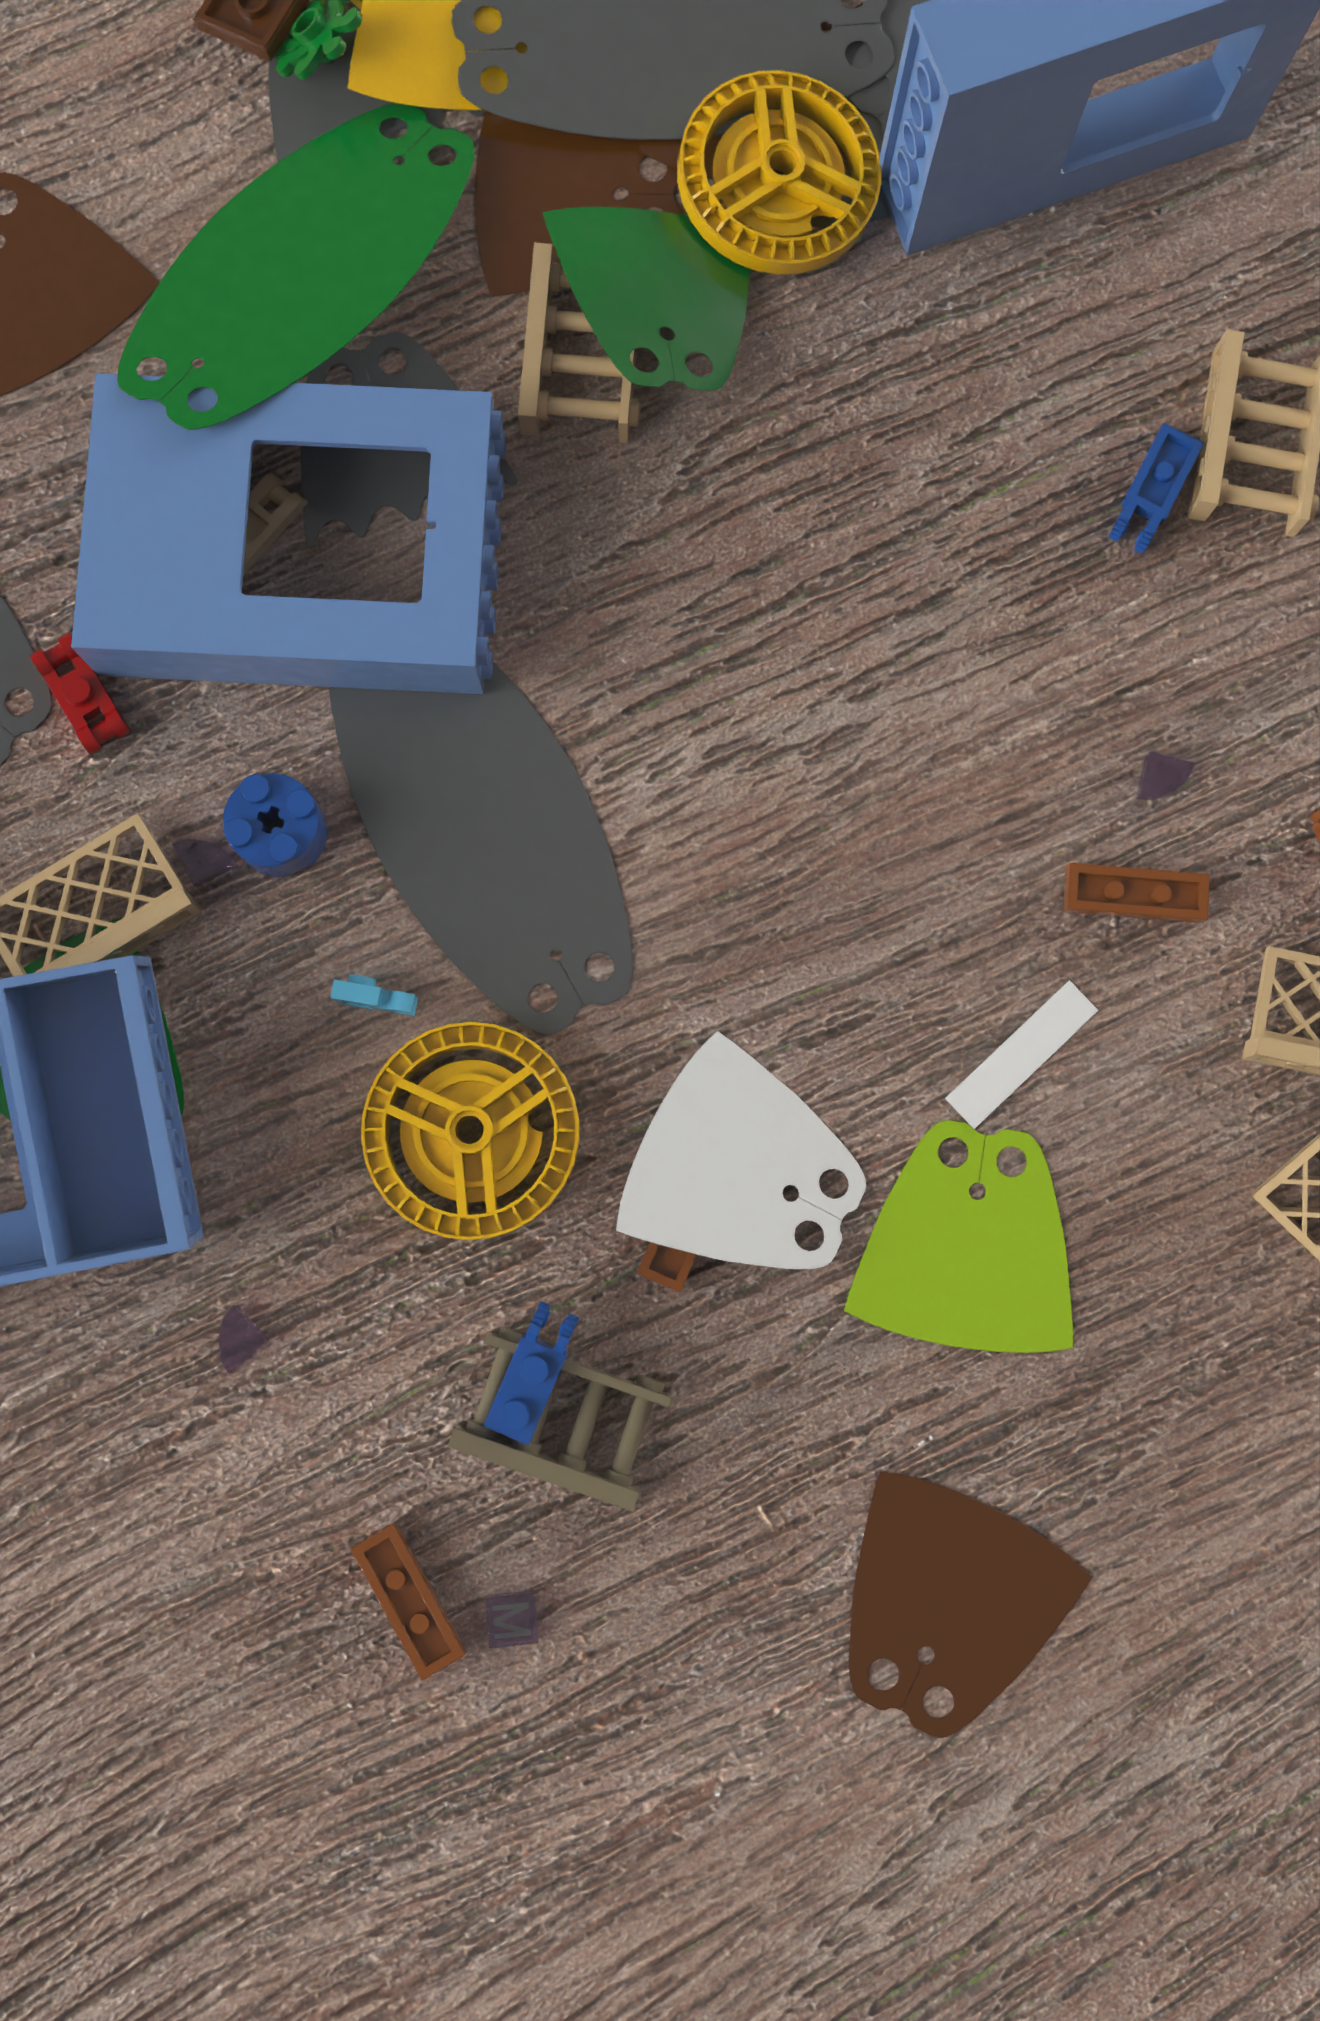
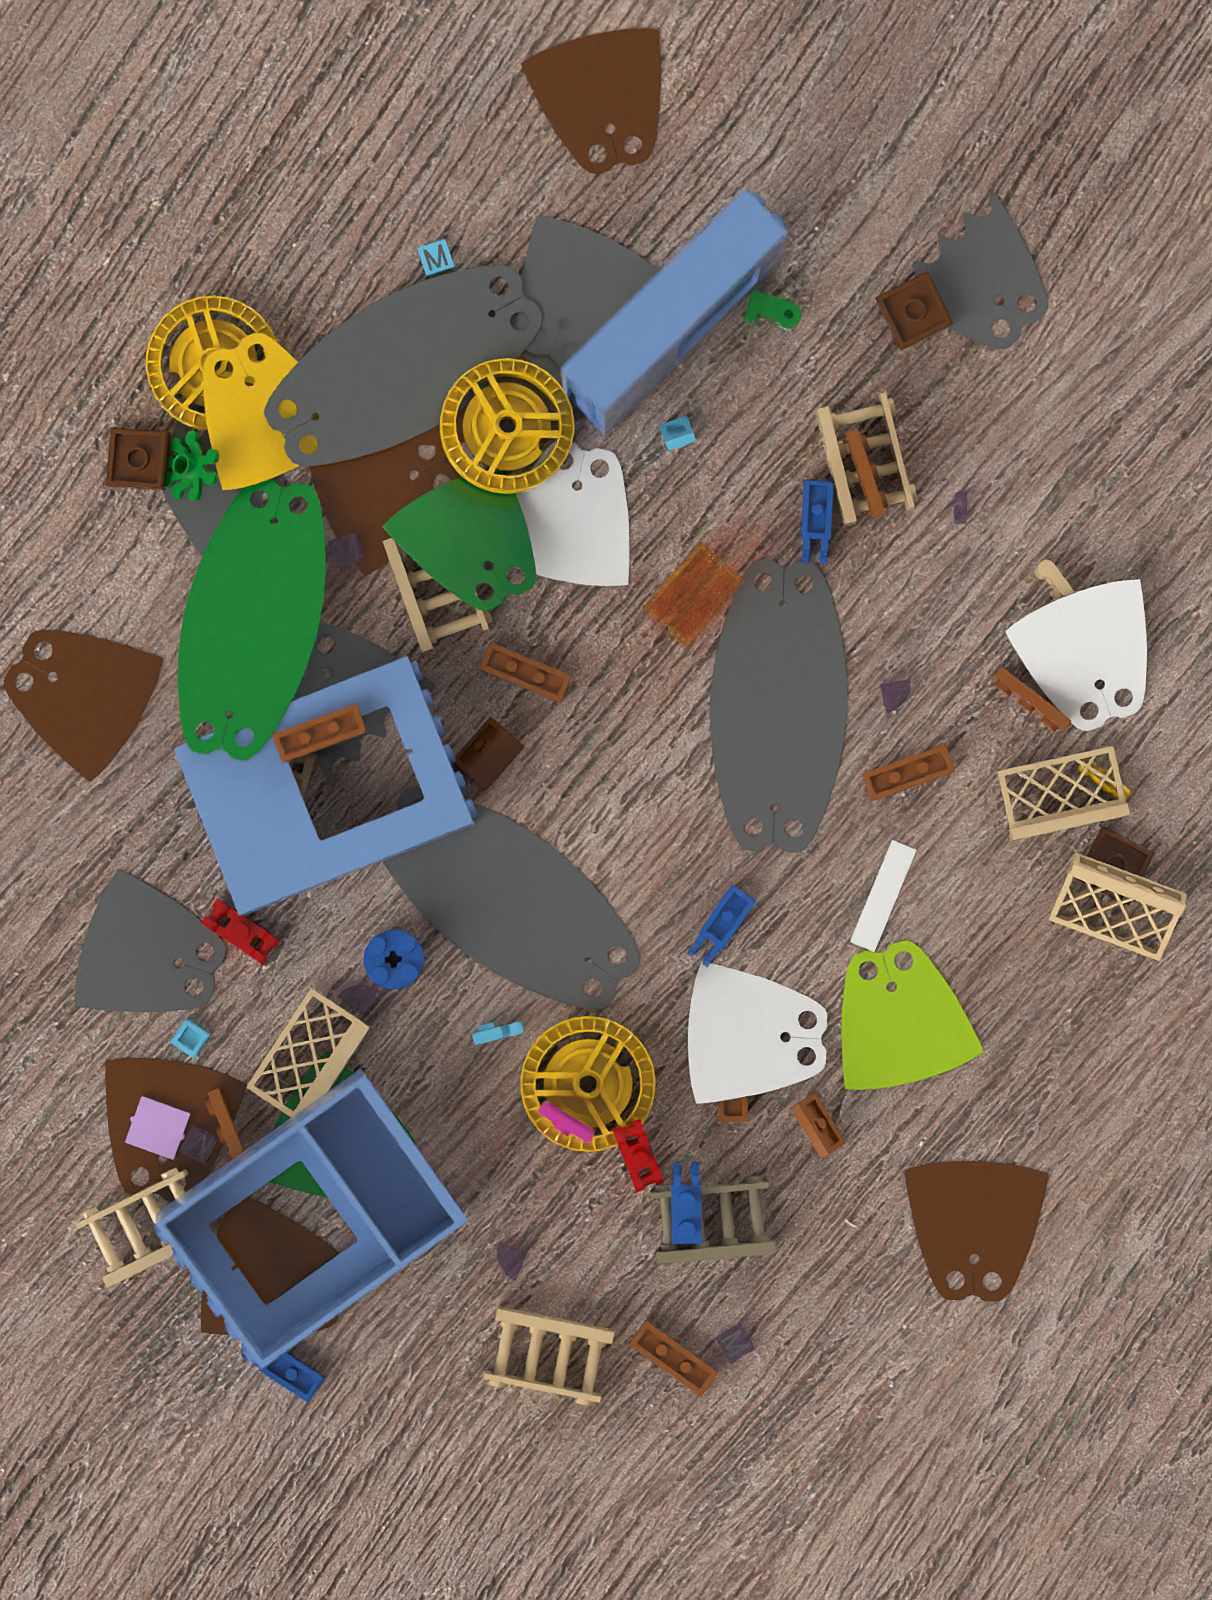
camera: 15 degrees left, 5 degrees up
(270, 1488) = (568, 1332): none -> tan fence
(311, 437) = (319, 733): none -> dark orange plate
(405, 1167) = (566, 1123): none -> dark pink plate
(480, 247) = (346, 550): none -> clear purple tile
(495, 1268) = (638, 1155): none -> red plate
(548, 603) = (488, 753): none -> reddish brown panel
(651, 514) = (525, 672): none -> dark orange plate
(773, 986) = (723, 922): none -> blue hinge
(781, 1346) = (818, 1125): none -> dark orange plate
(814, 366) = (580, 532): none -> white piece
(938, 506) = (693, 595): none -> clear orange piece
(987, 723) = (778, 705): none -> dark grey piece
(1011, 287) = (677, 433): none -> medium azure plate
(1216, 183) = (772, 309): none -> green leg
(1261, 442) = (866, 473): none -> dark orange plate

